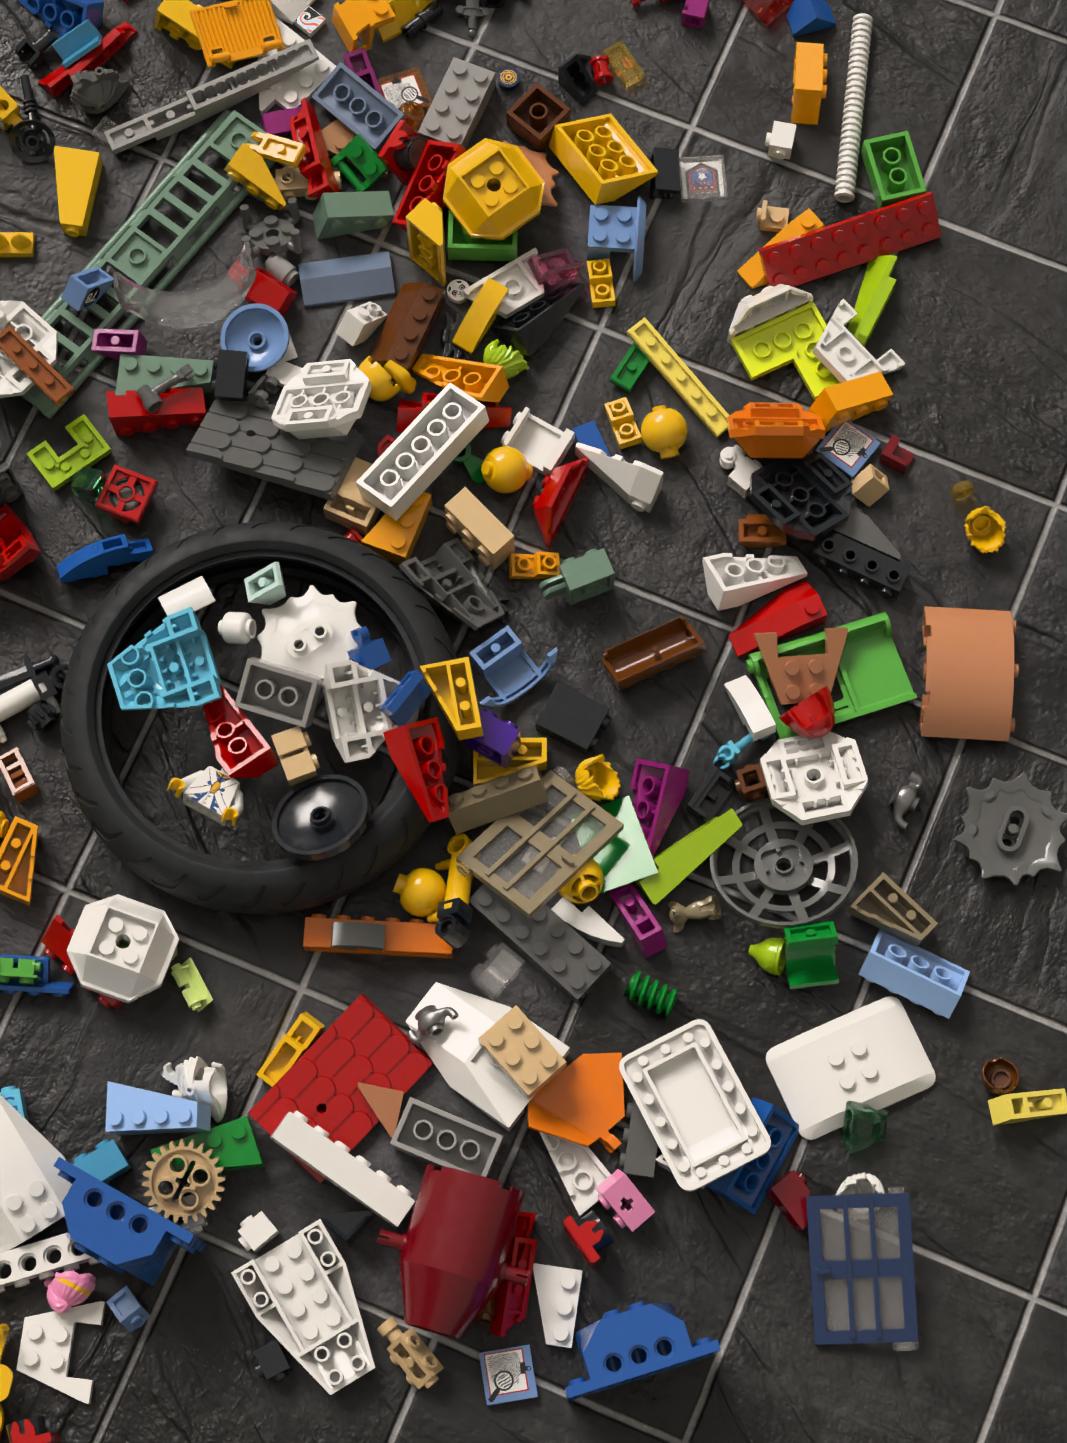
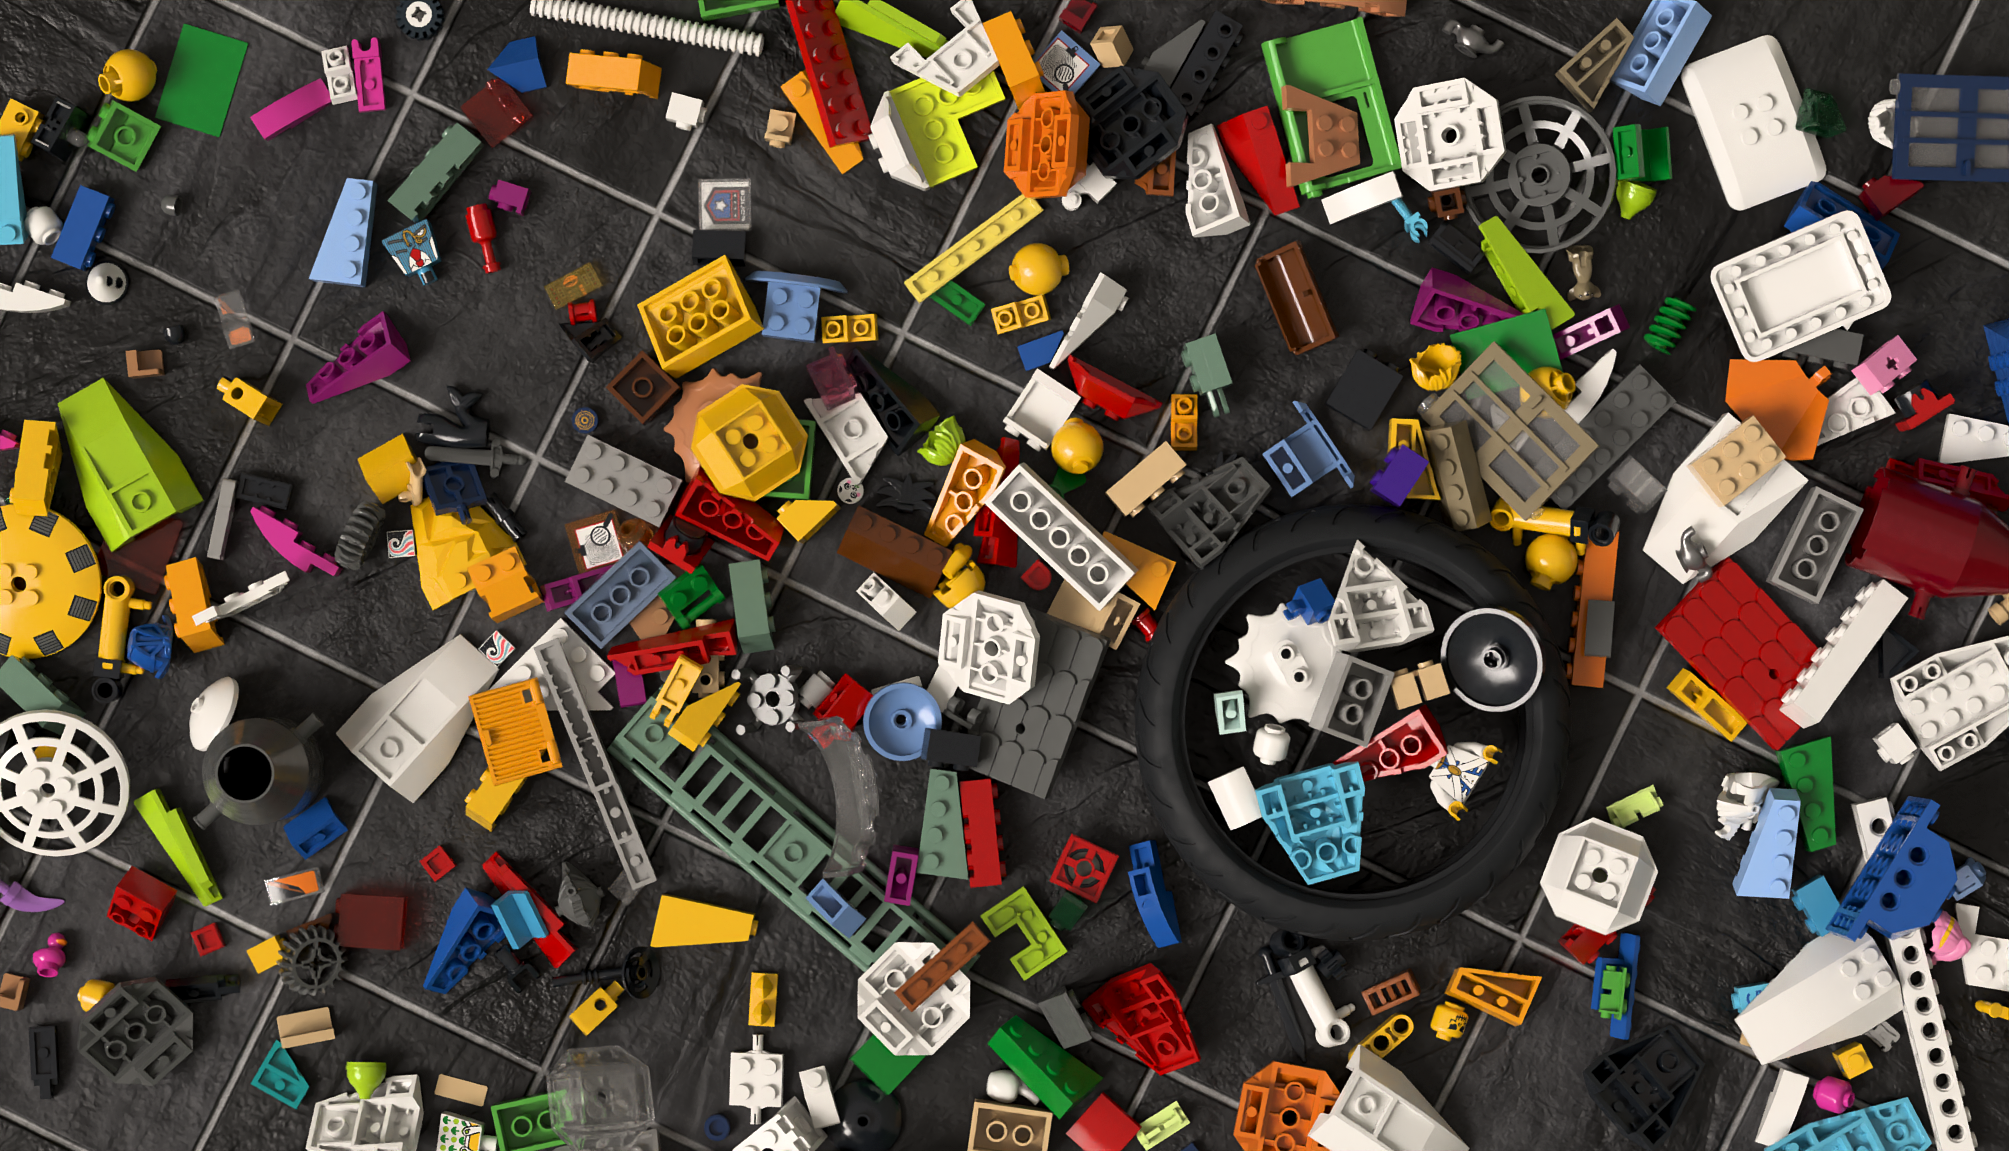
camera: 85 degrees left, 15 degrees up
(151, 398) = (977, 838): dark grey brick -> none
(164, 1171) = (1858, 795): tan gear -> none
(346, 279) = (826, 617): sand blue slope -> none
(385, 1104) = (1771, 608): nougat tile -> none
(405, 698) = (1366, 564): blue panel -> none
(418, 758) = (1429, 554): red wedge -> none
(456, 695) = (1366, 509): yellow wedge -> none
(480, 315) = (890, 466): yellow slope -> none
(812, 716) = (1381, 133): red hair -> none

